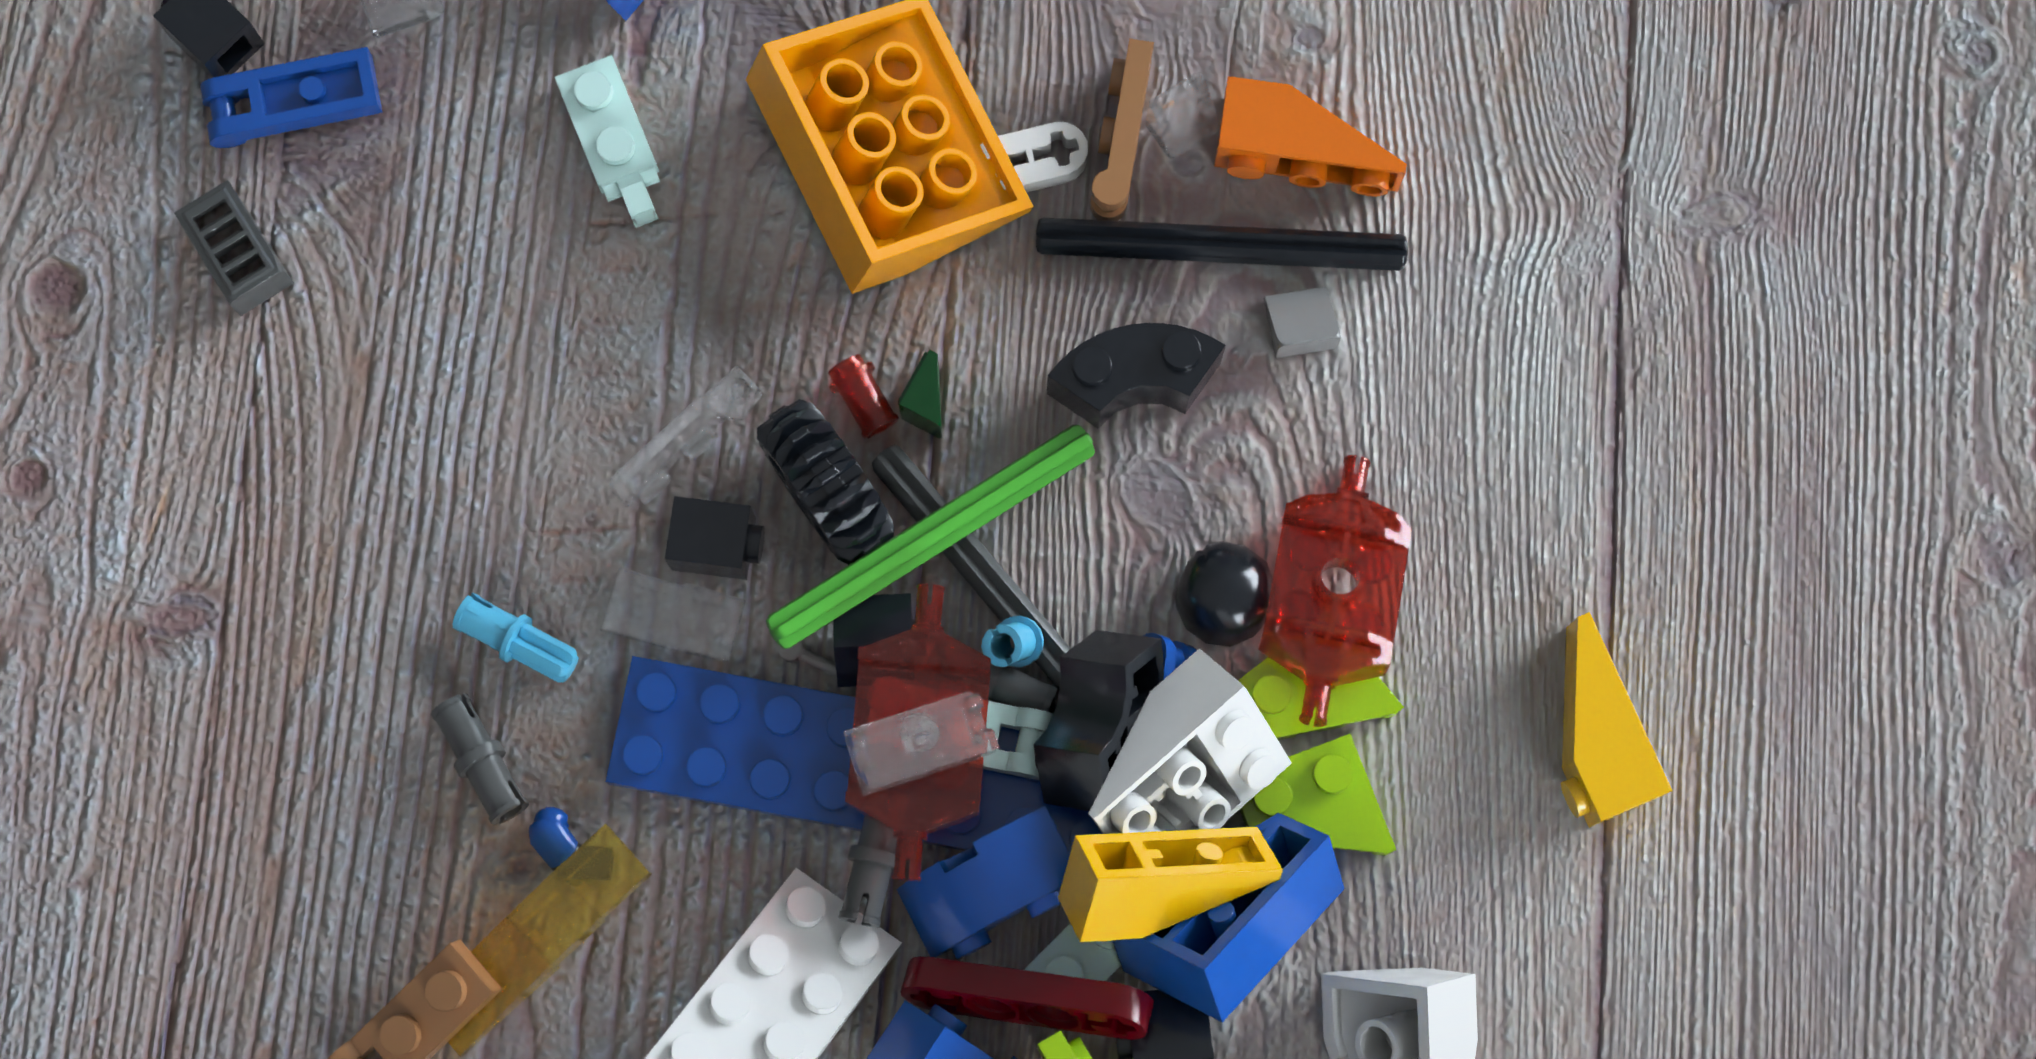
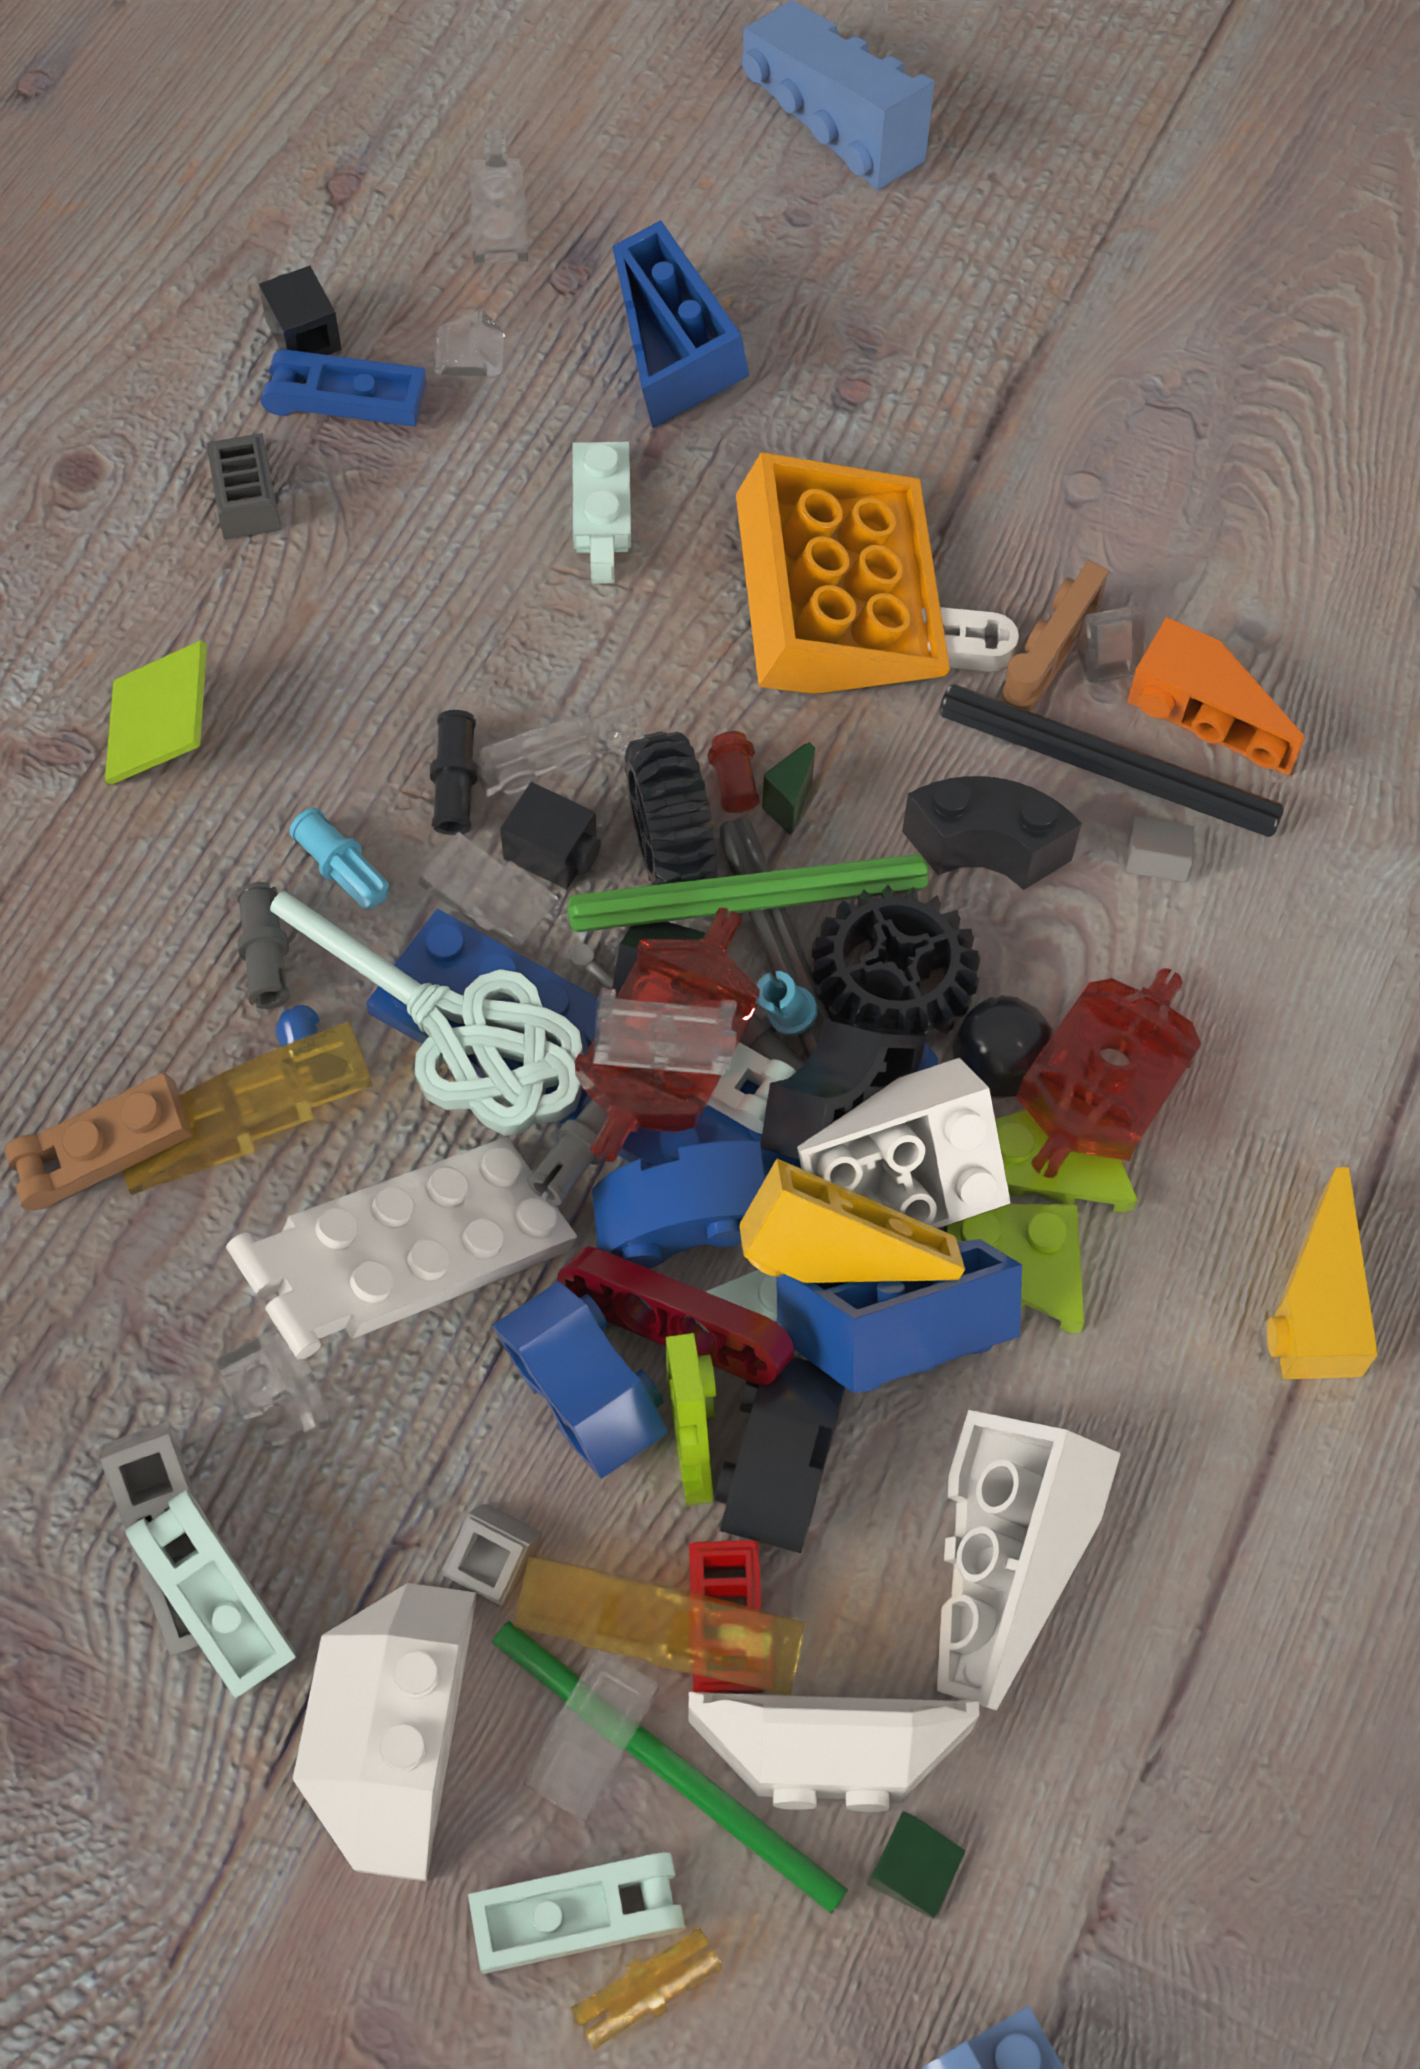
camera: 20 degrees right, 15 degrees down
(265, 551) = (156, 712): none -> lime piece
(588, 501) = (453, 772): none -> black pin
(794, 824) = (487, 1034): none -> light aqua piece
(1075, 529) = (910, 940): none -> black gear

